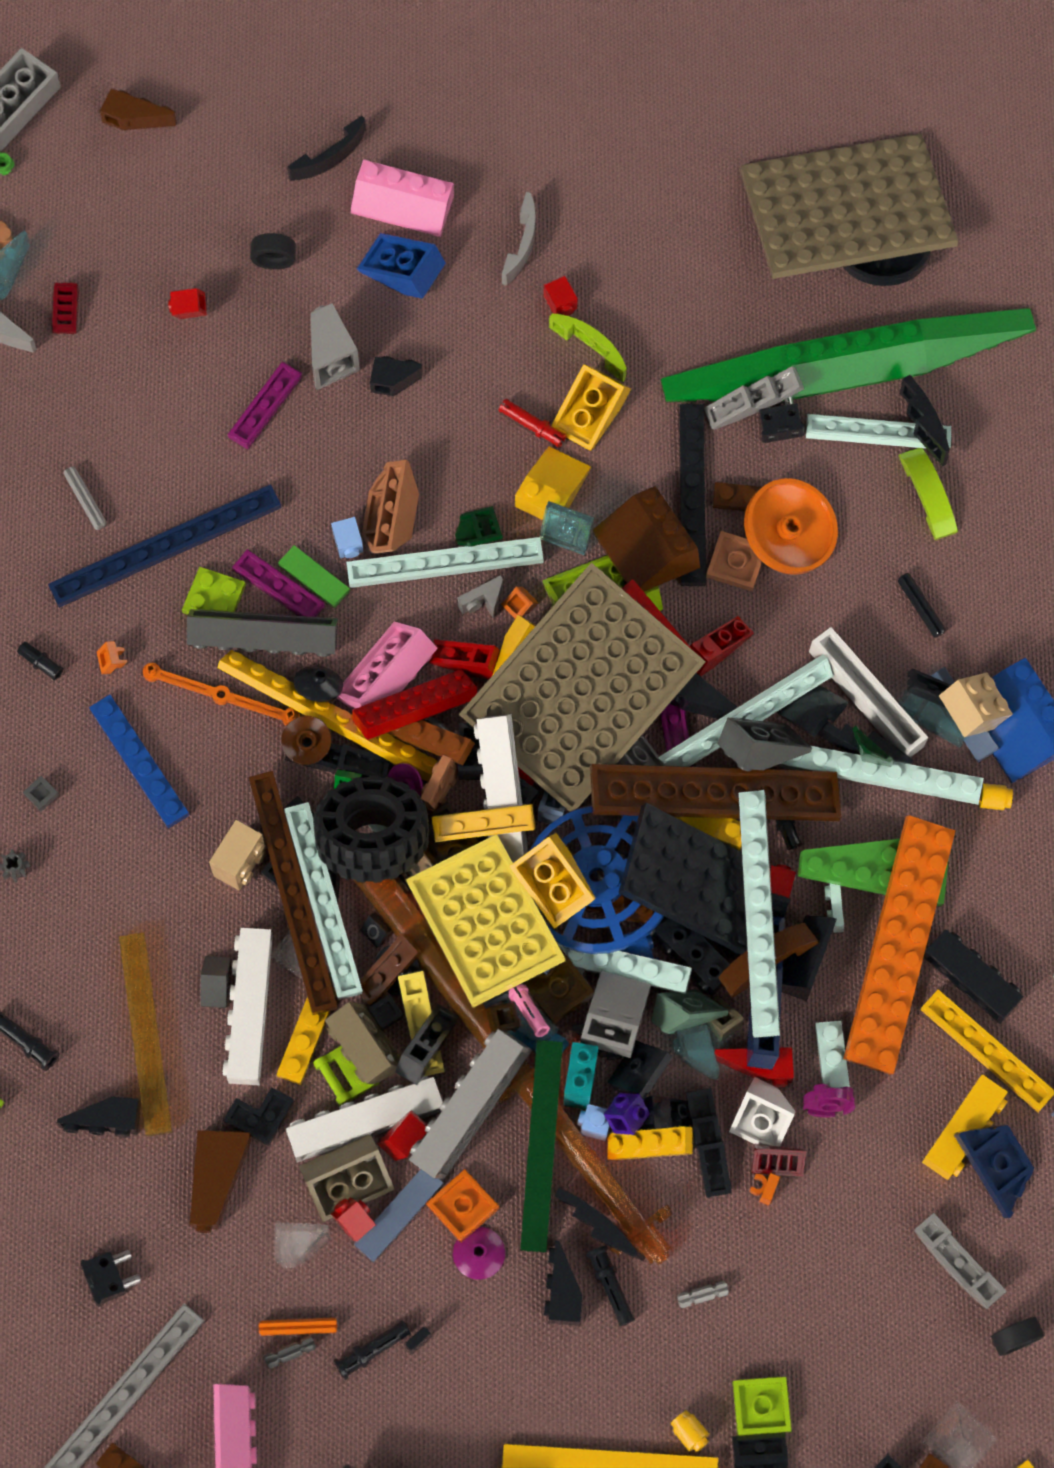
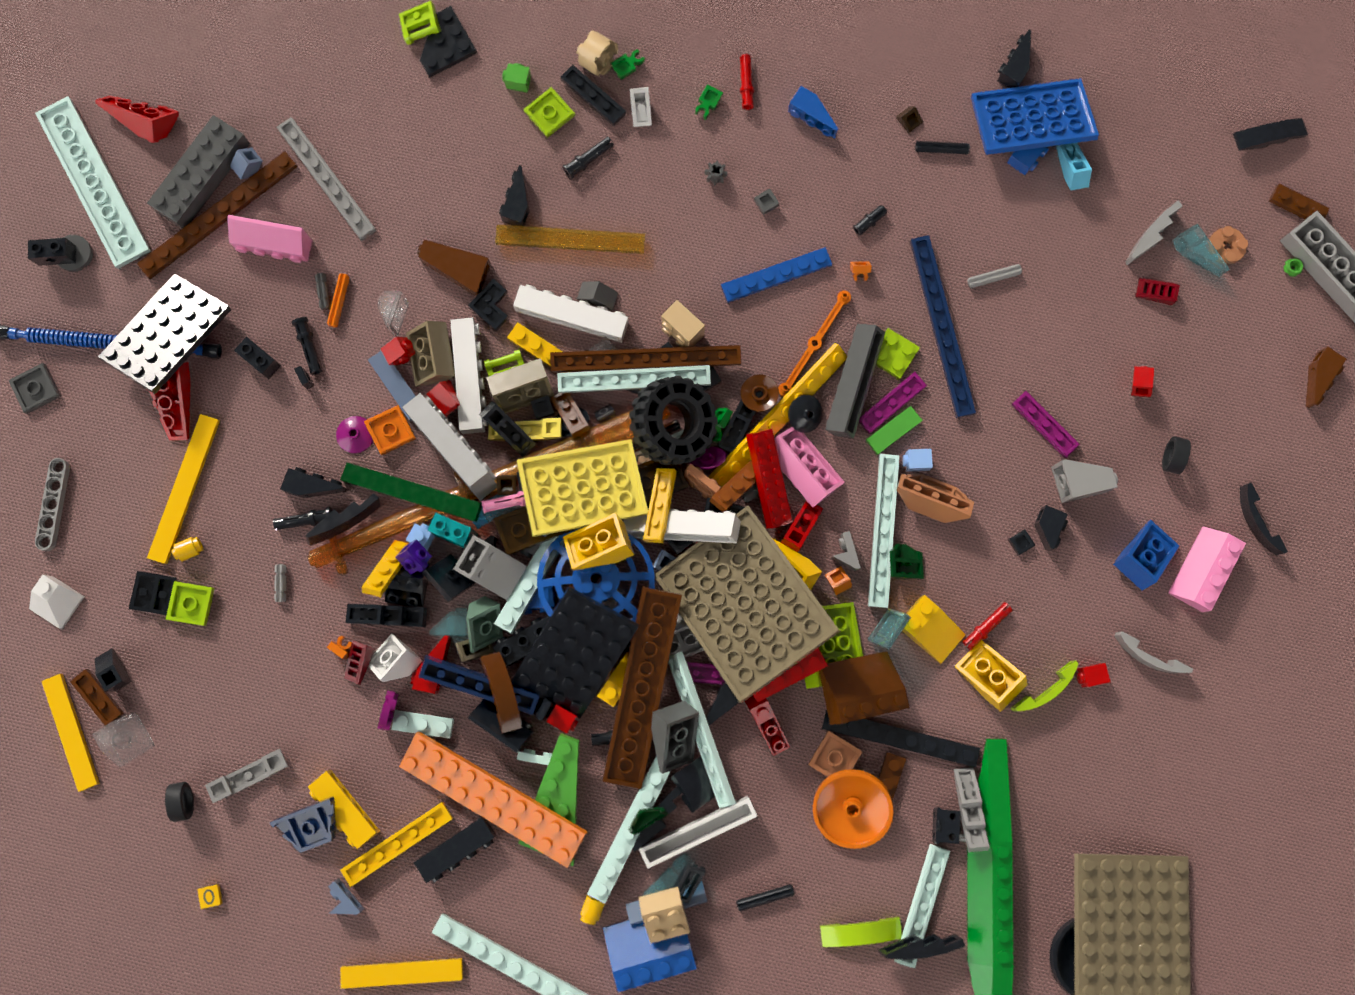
camera: 105 degrees right, 10 degrees up
(101, 1278) = (406, 178): black piece -> none
(406, 1411) = (257, 358): none -> black brick
(419, 405) = (1021, 542): none -> black tile
(759, 914) = (533, 692): light aqua plate -> none

